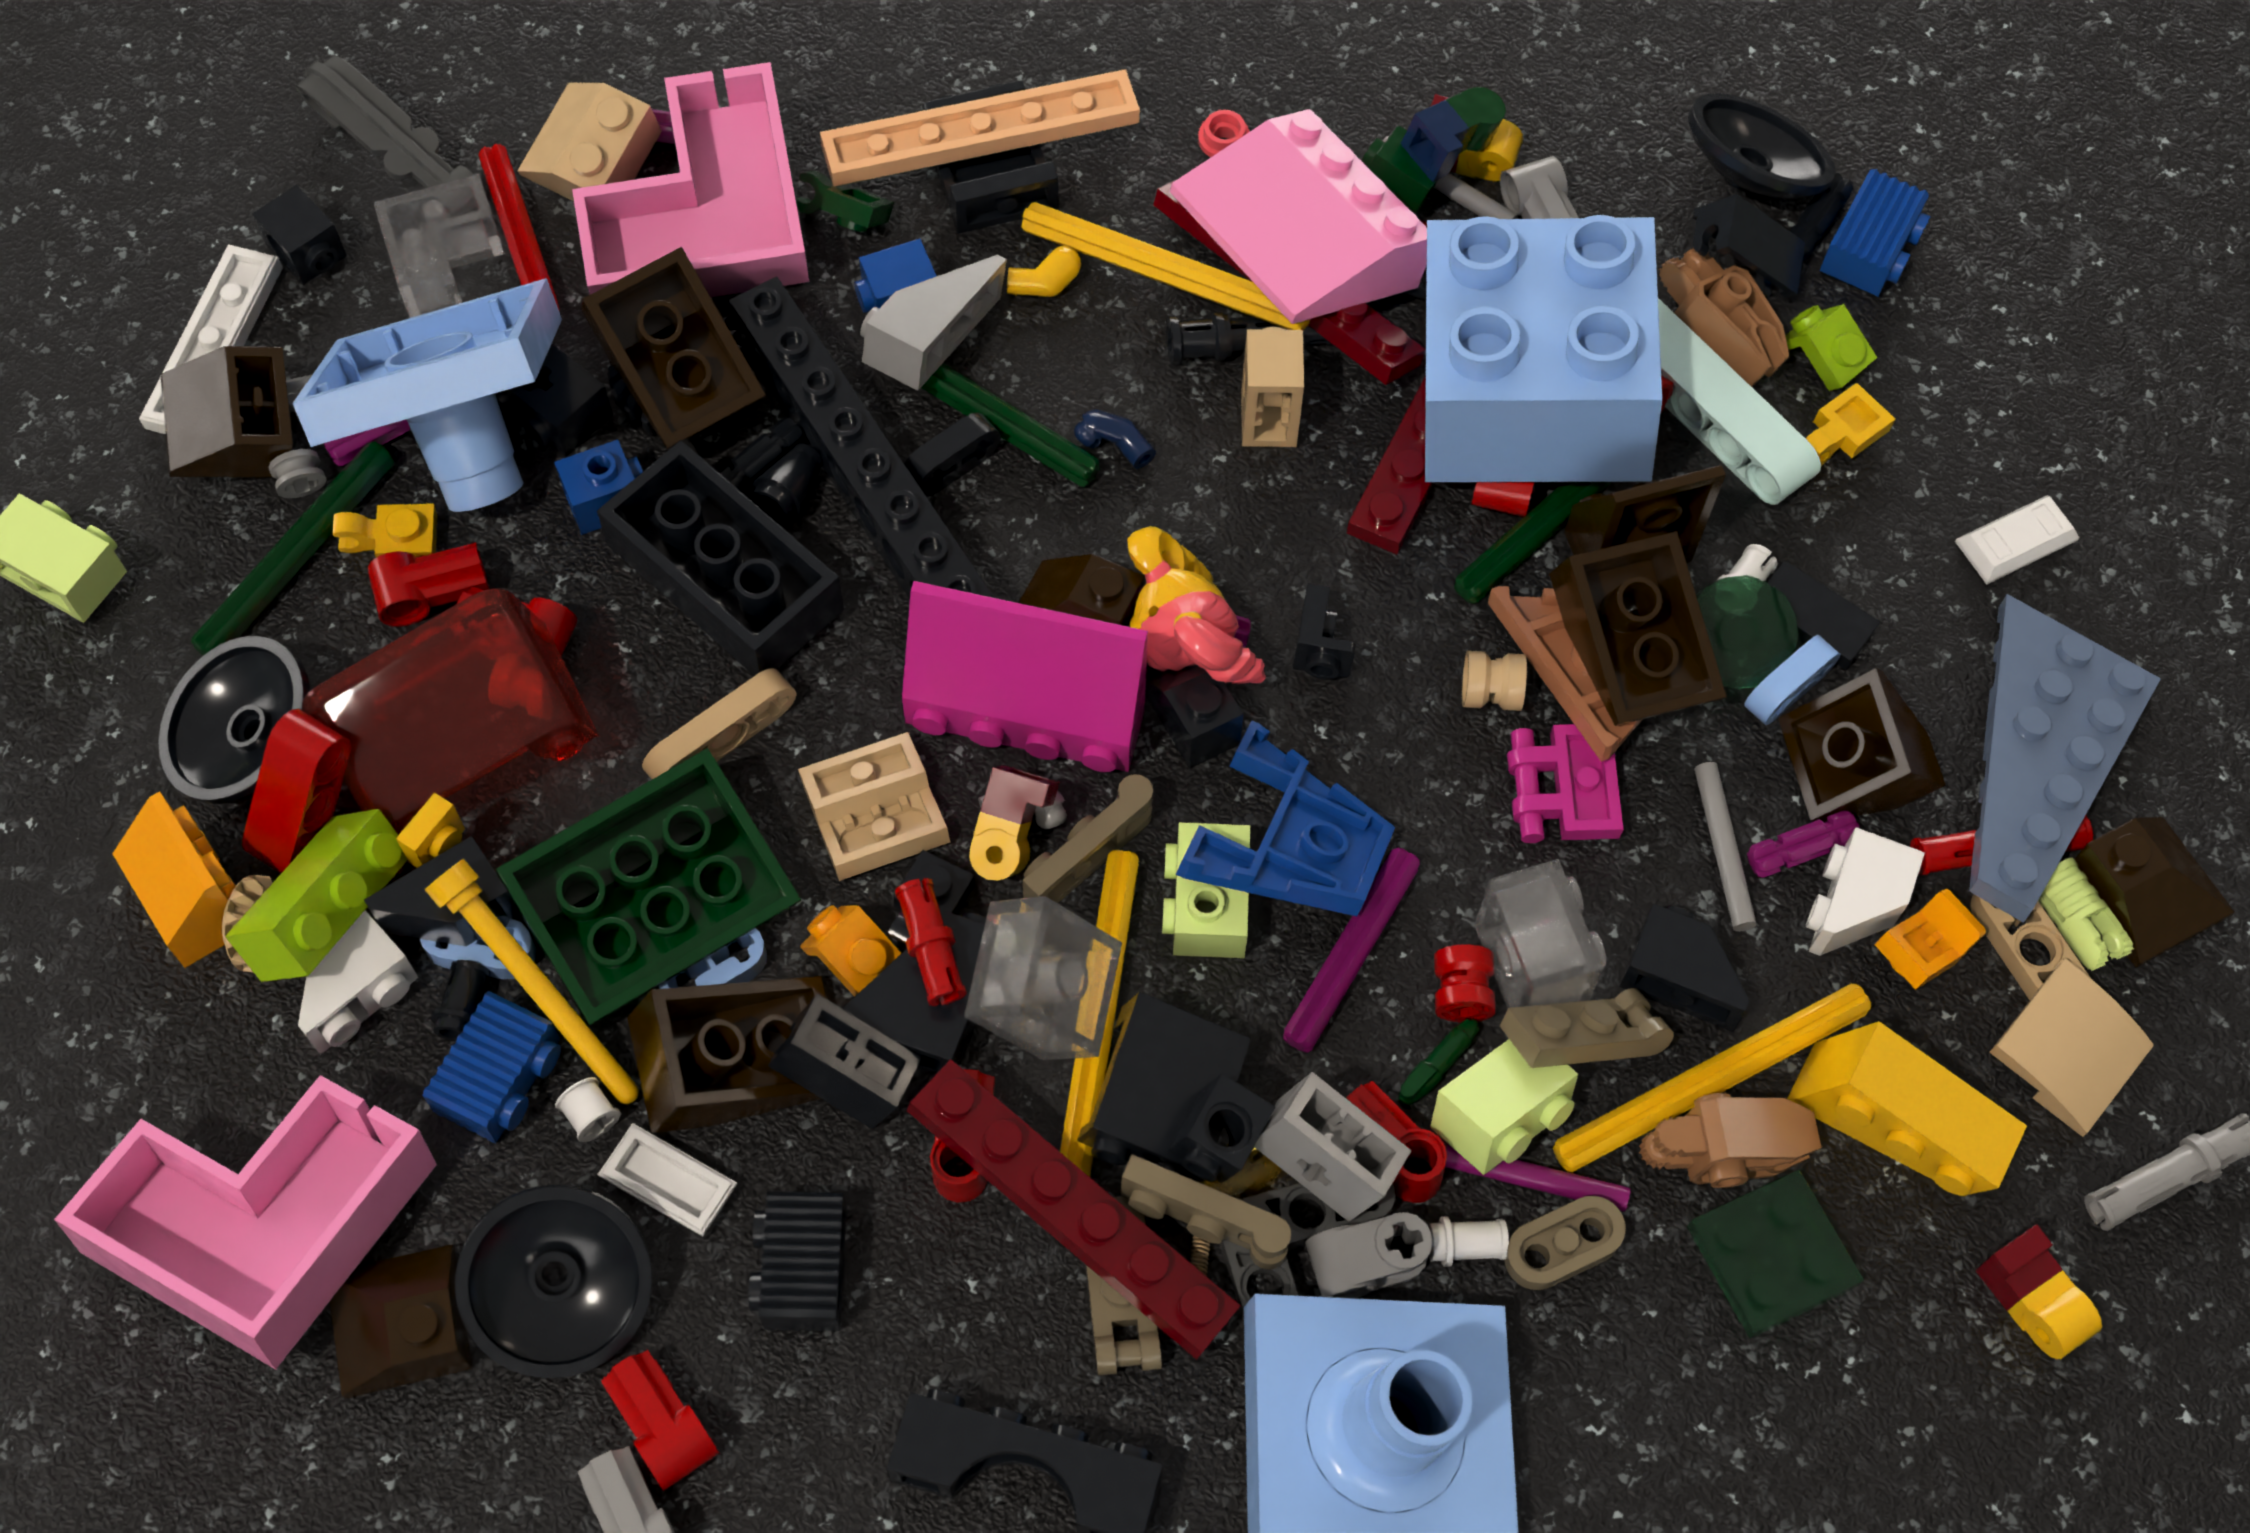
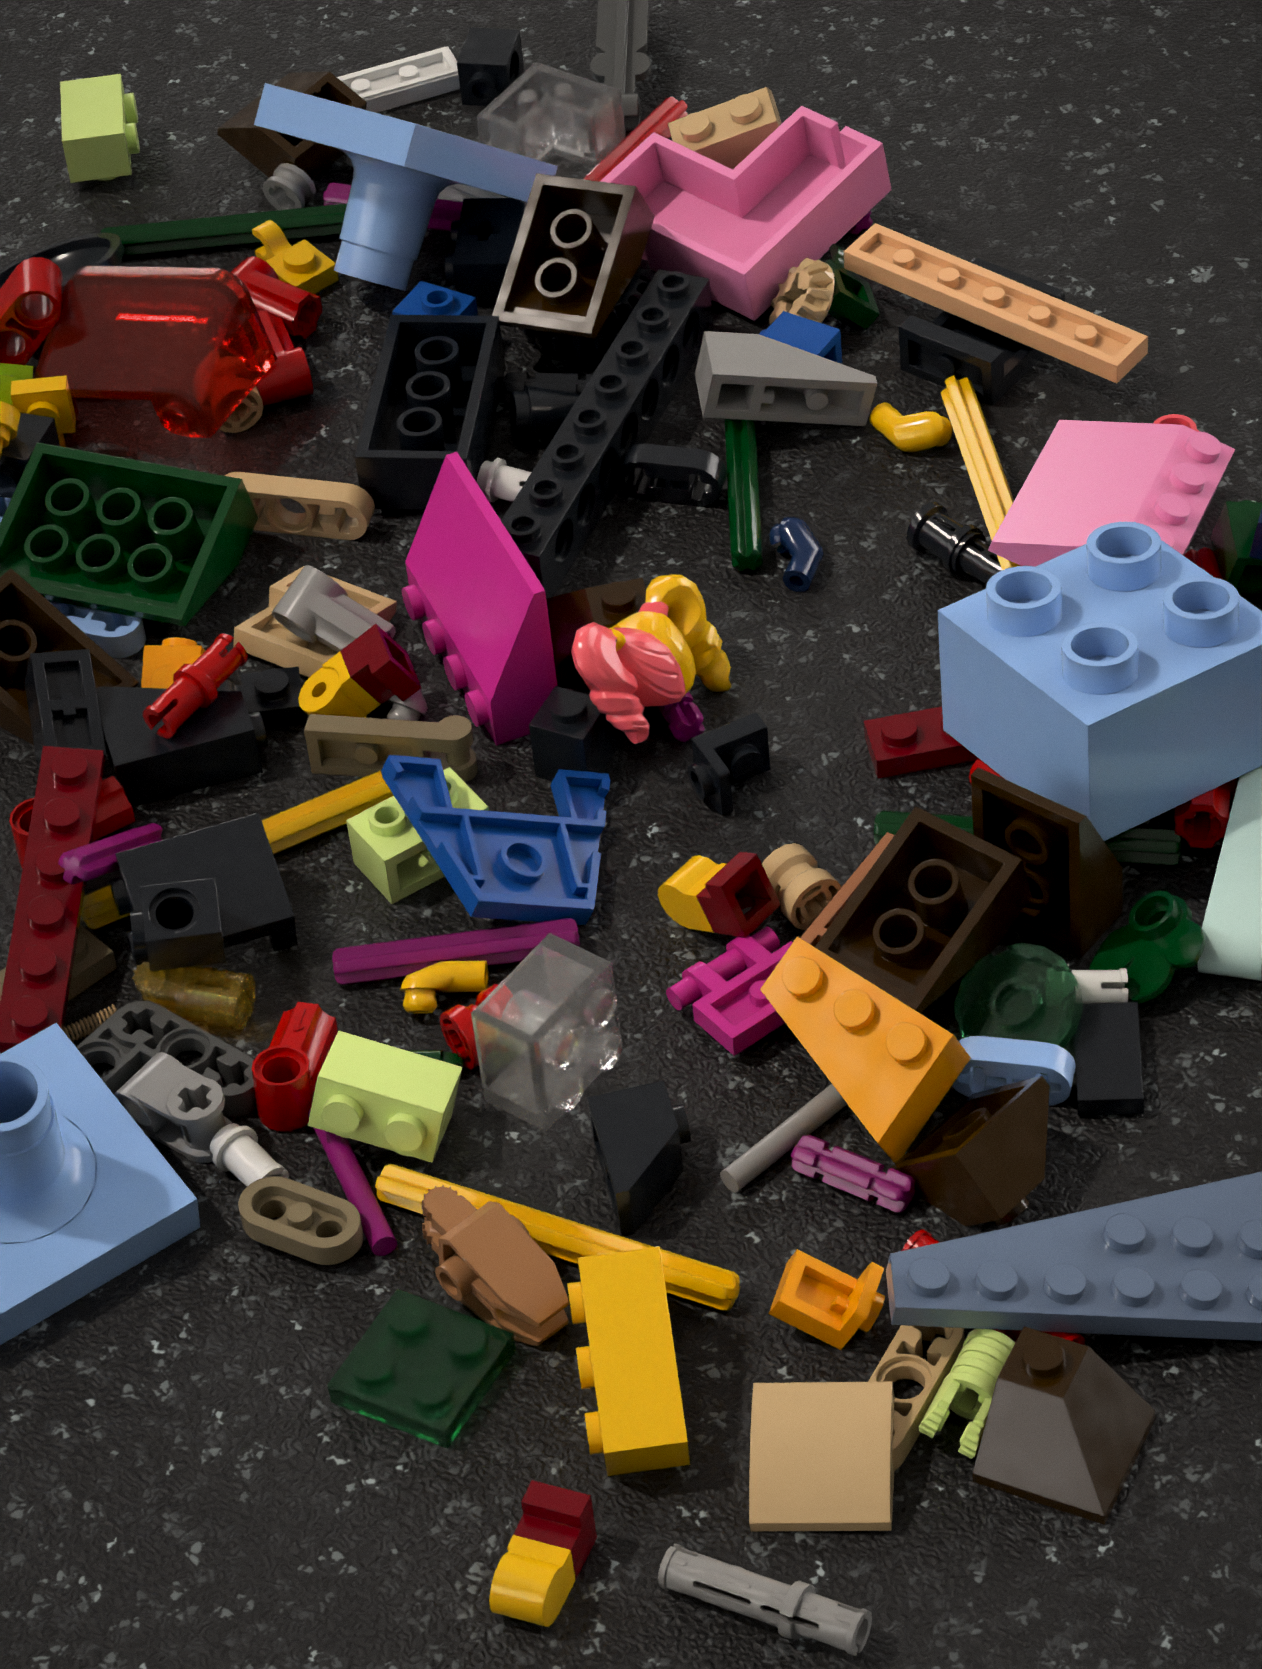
camera: 60 degrees right, 20 degrees down
(842, 212) = (806, 291): none -> tan gear
(849, 561) = (500, 480): none -> white pin
(902, 792) = (321, 611): none -> light grey piece
(1043, 978) = (229, 763): clear brick -> none
(1061, 1127) = (100, 857): none -> magenta axle
(1206, 1211) = (113, 977): dark tan plate -> none
(1272, 387) = (916, 577): tan brick -> none
(1331, 1147) = (225, 994): light grey brick -> none
(1374, 981) = (442, 977): none -> yellow arm
(1466, 738) = (713, 895): none -> dark red leg
(1587, 1030) = (501, 1110): dark tan plate -> none
(1741, 751) = (867, 1043): none -> light orange wedge
(1751, 519) = (1152, 945): none -> dark green plate
(1866, 892) = (835, 1221): white slope -> none

